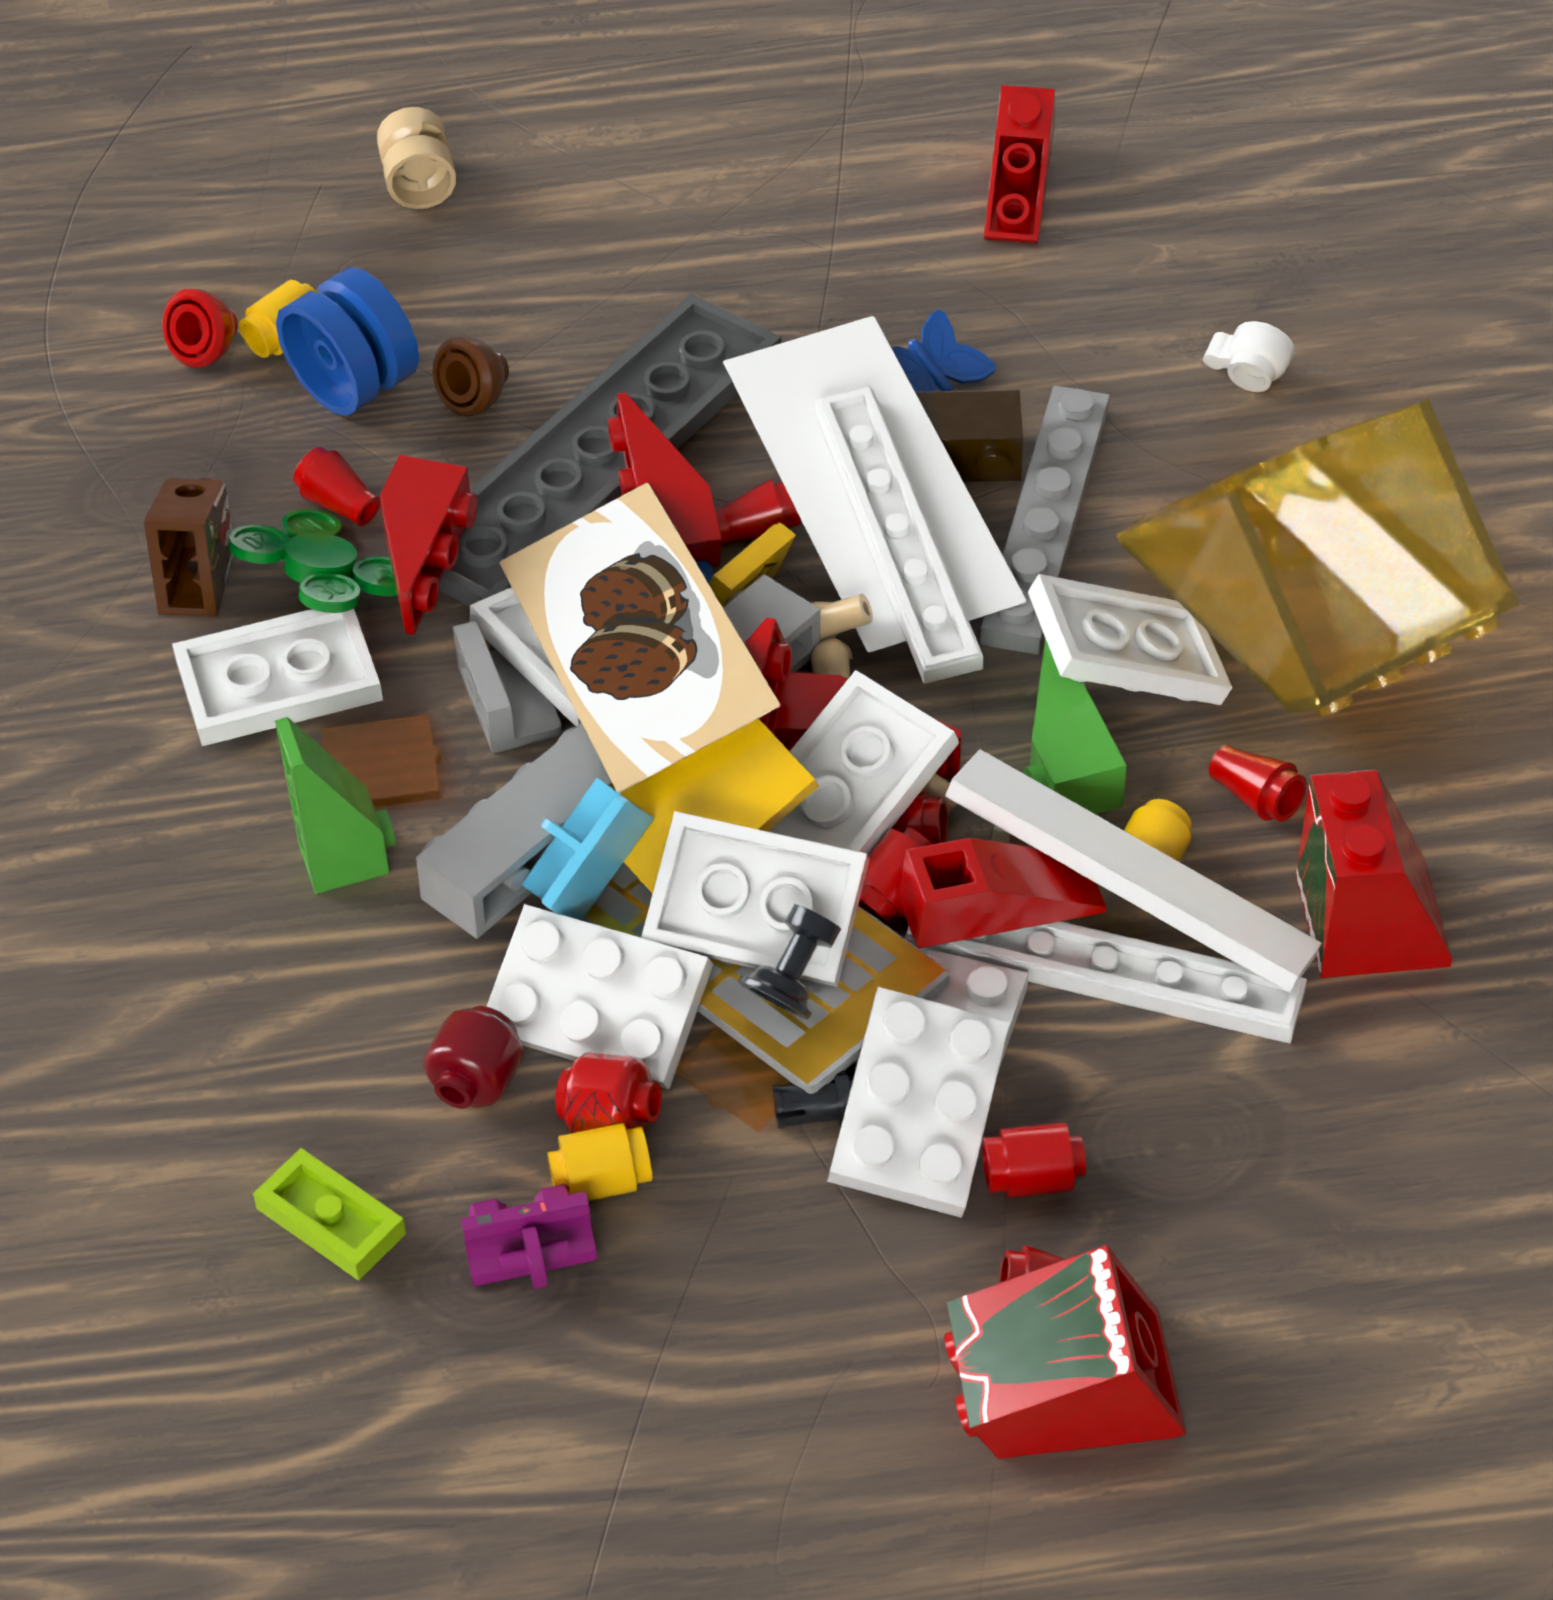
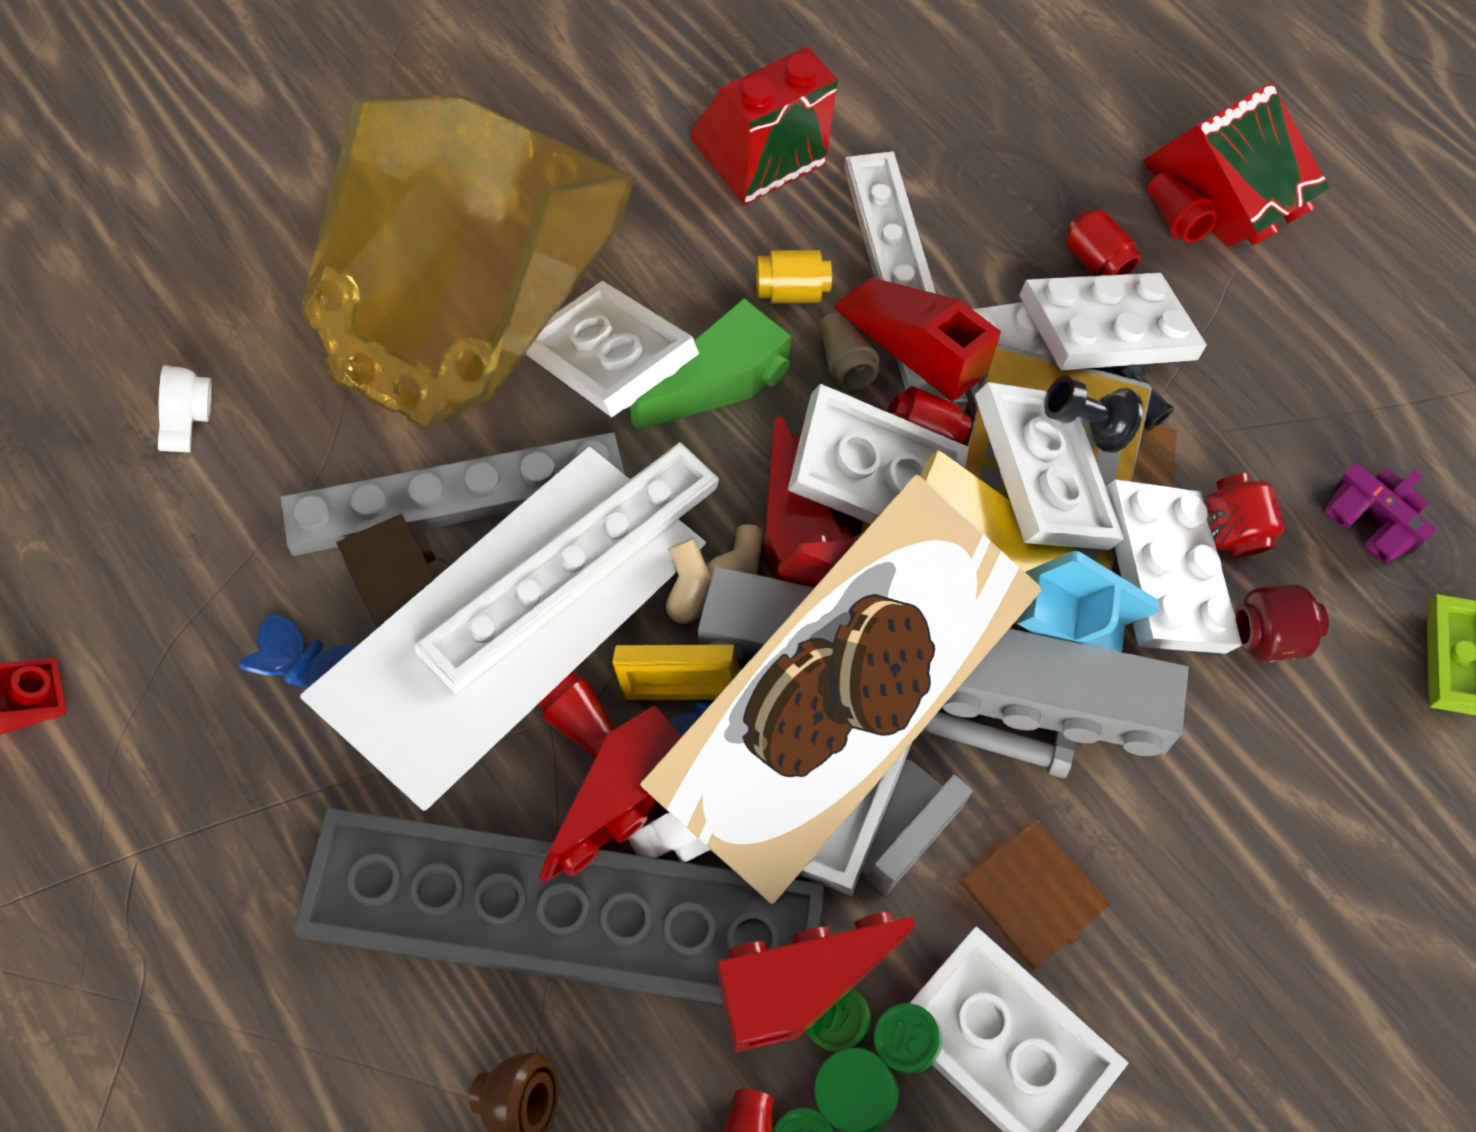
camera: 125 degrees left, 15 degrees up
(332, 814) = (1172, 845): bright green slope -> none
(601, 1161) = (1300, 495): yellow brick -> none
(1134, 870) = (848, 262): white tile -> none
(1262, 783) = (685, 235): red cone -> none

